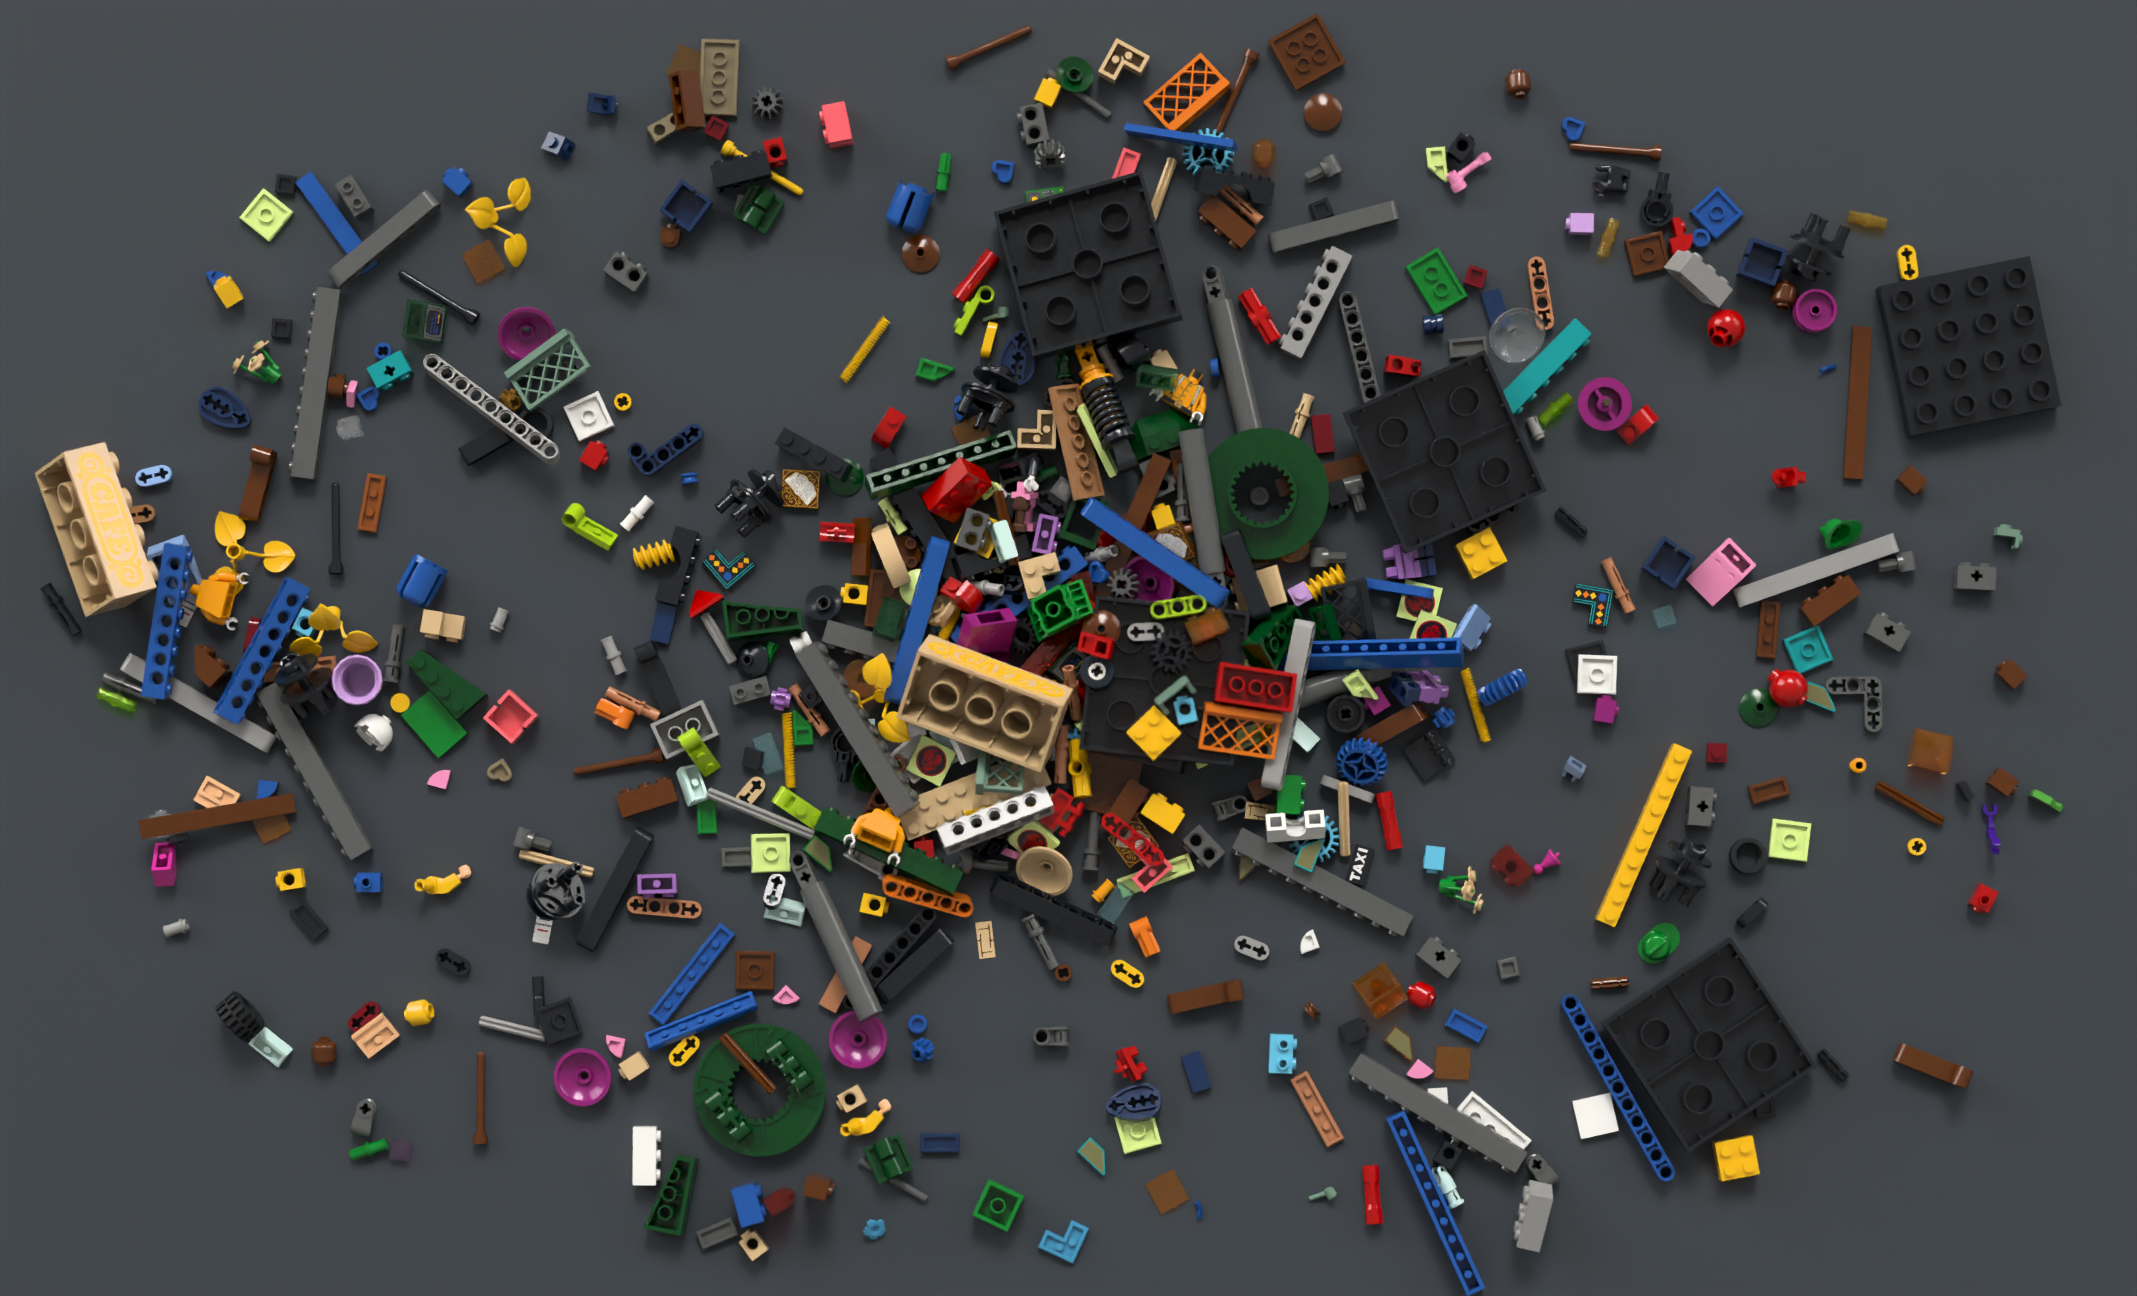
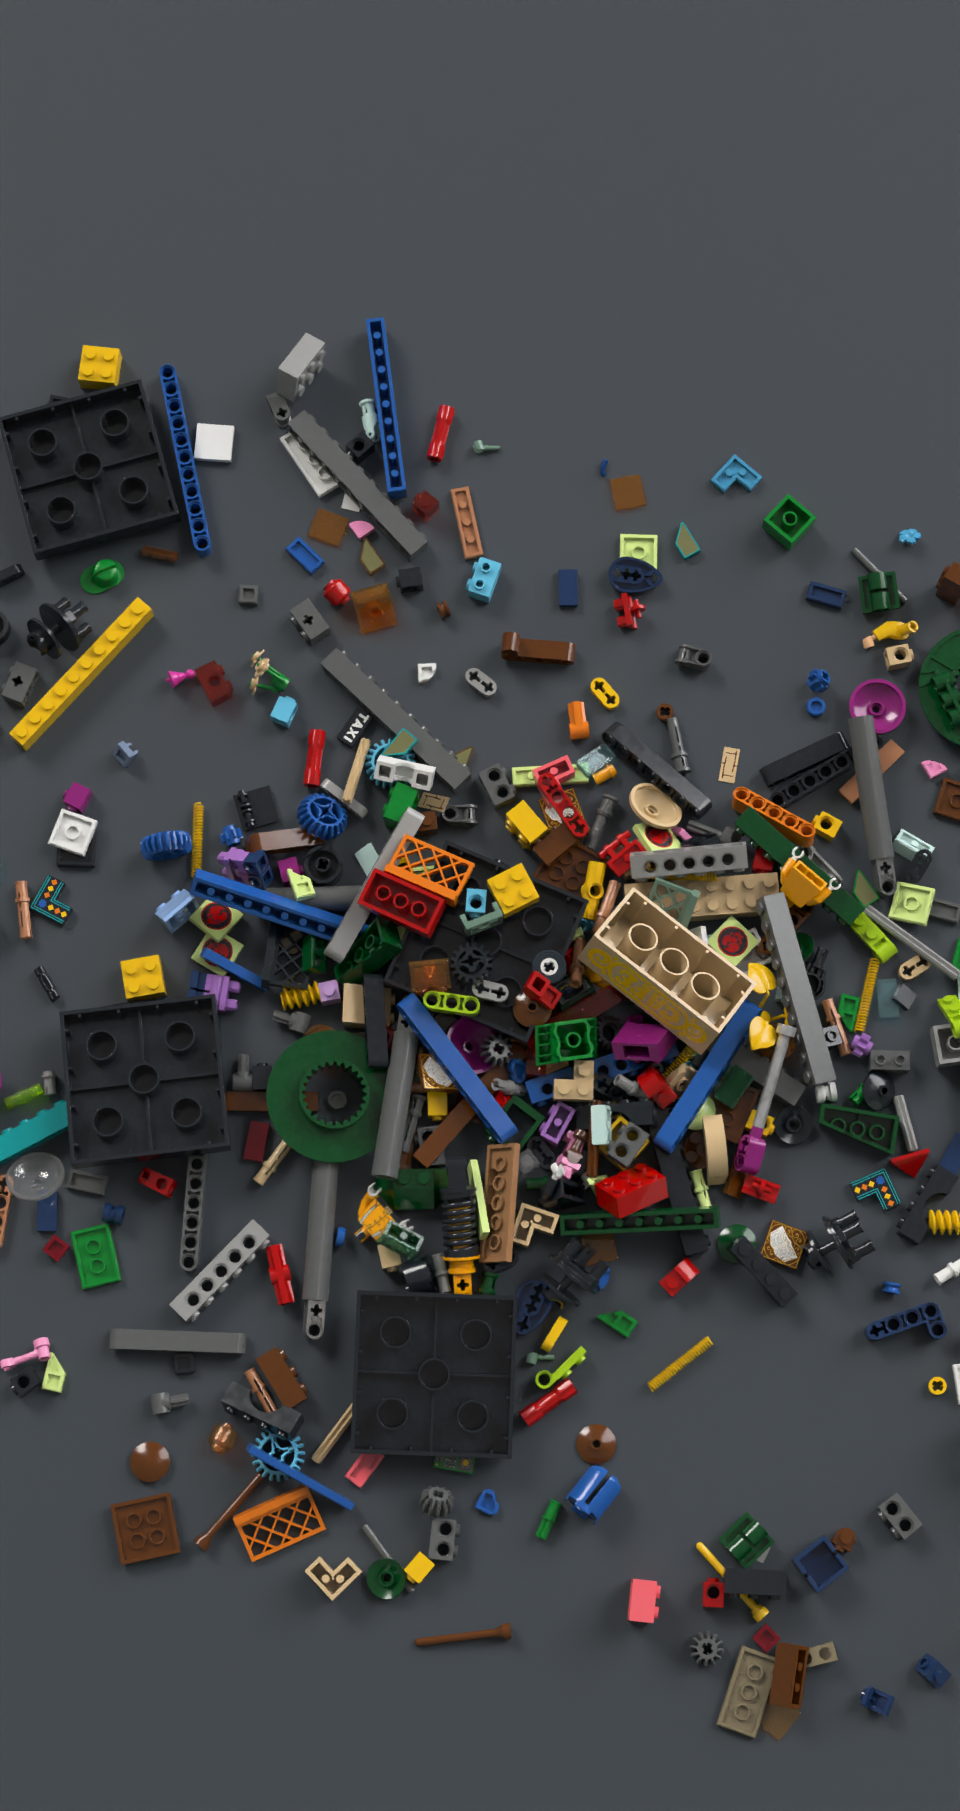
camera: 160 degrees left, 10 degrees down
(855, 567) = (752, 1146): none -> piece
(1363, 1112) = (425, 505): none -> clear red brick

